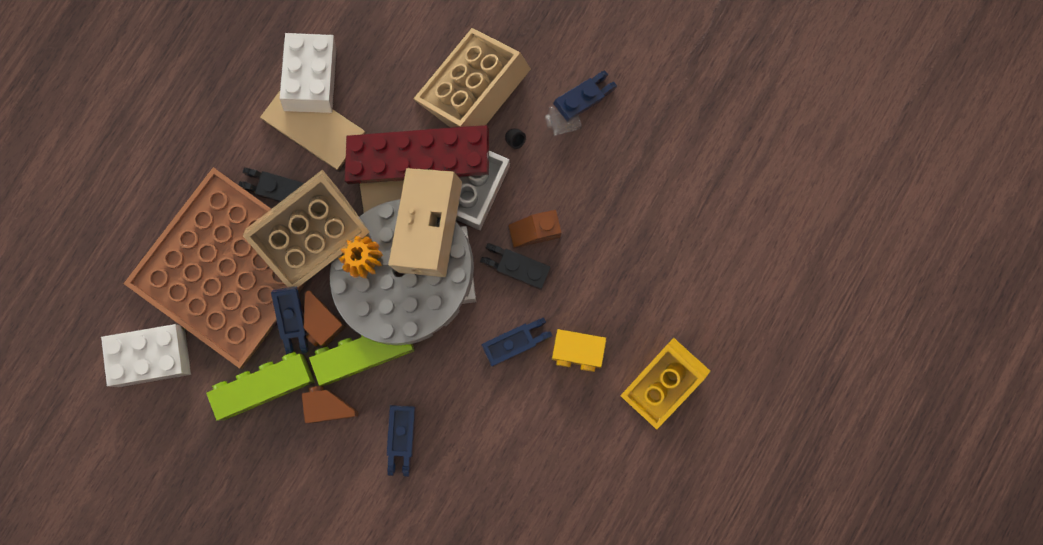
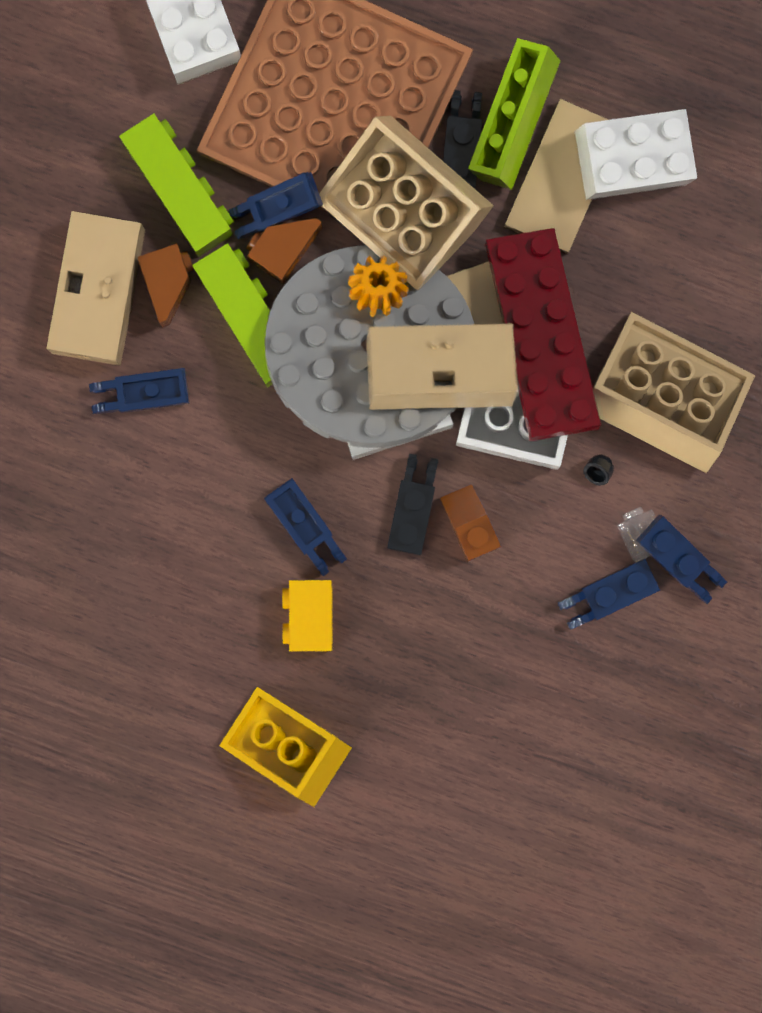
camera: 85 degrees right, 5 degrees up
(263, 147) = (514, 113): none -> lime brick
(320, 457) = (96, 288): none -> tan brick
(599, 145) = (613, 593): none -> dark blue hinge

